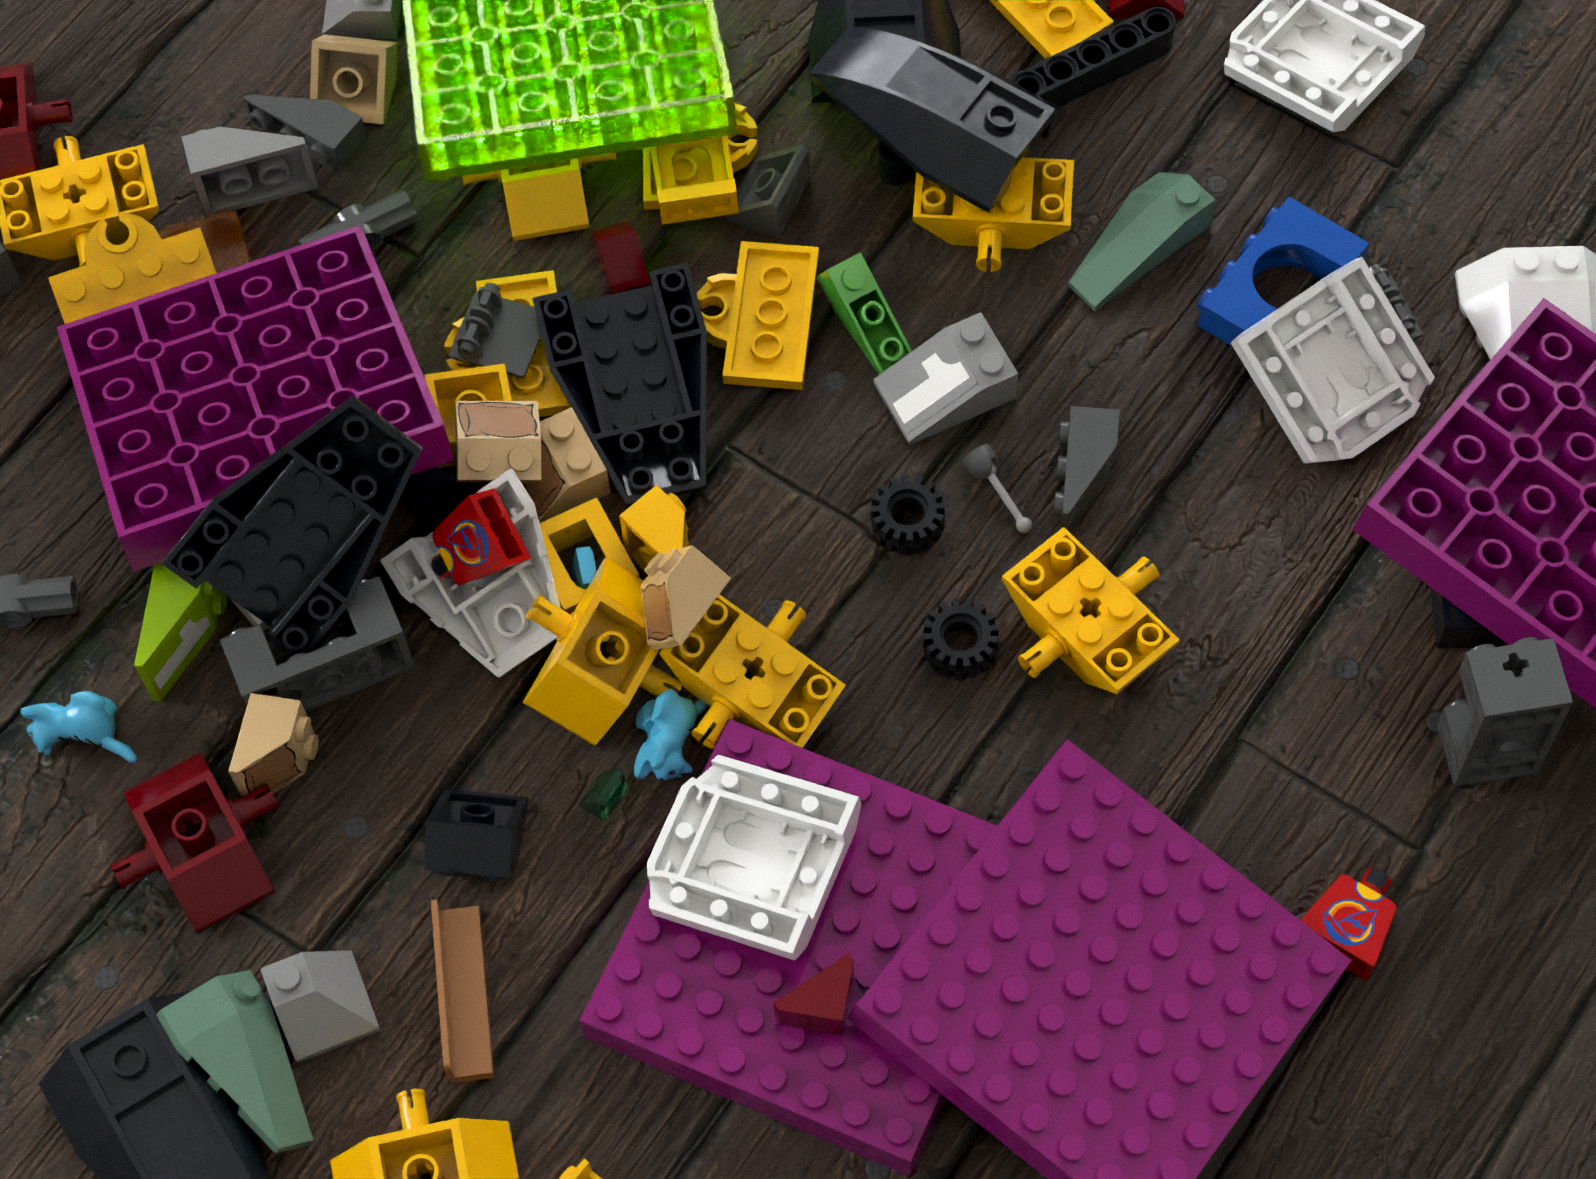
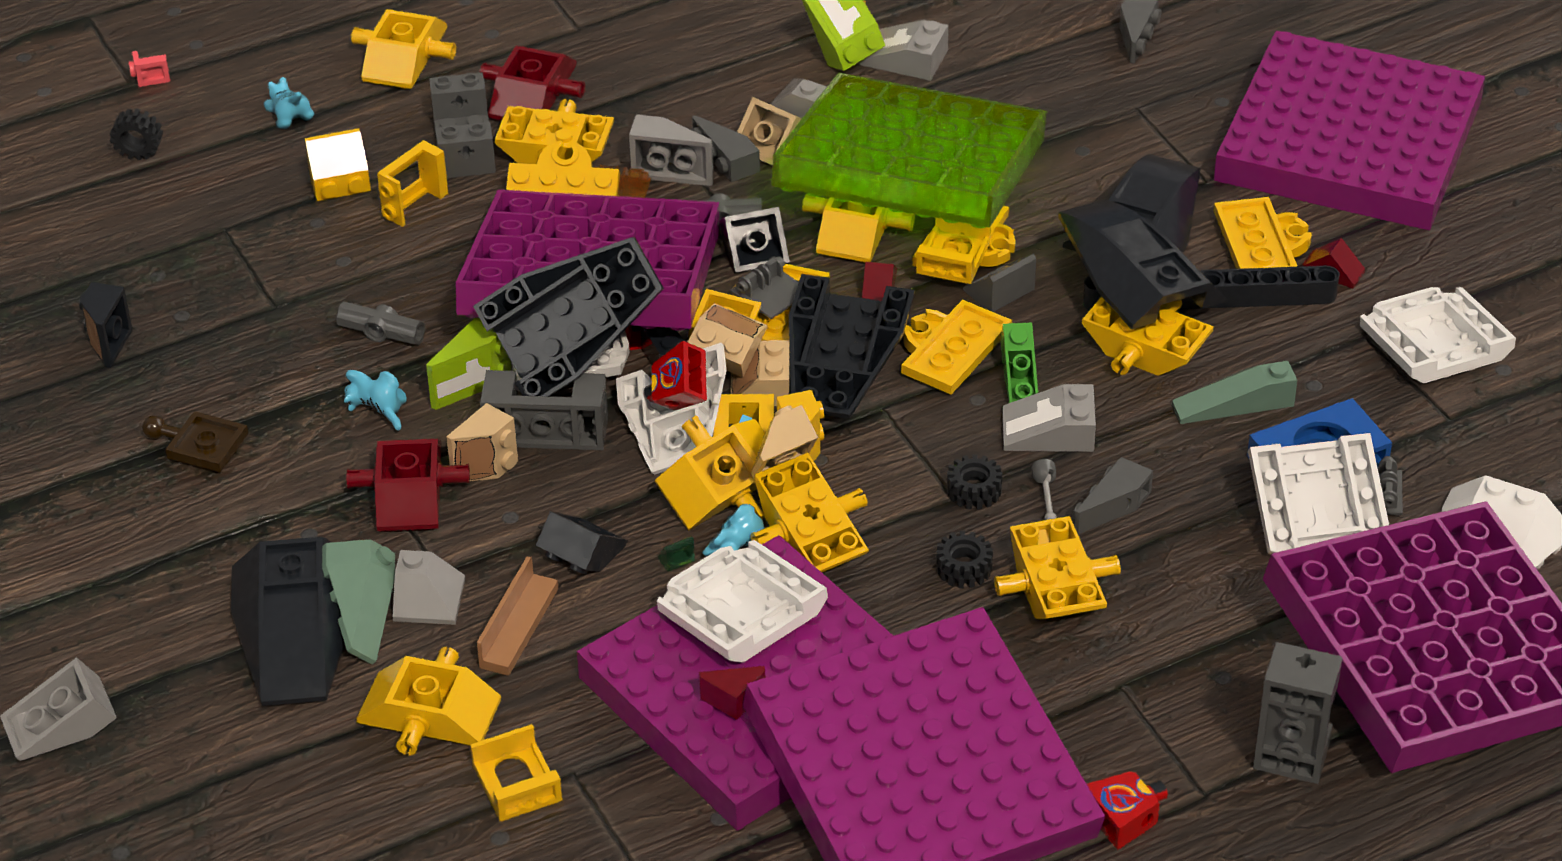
camera: 25 degrees right, 20 degrees down
(428, 257) = (753, 238): none -> black slope

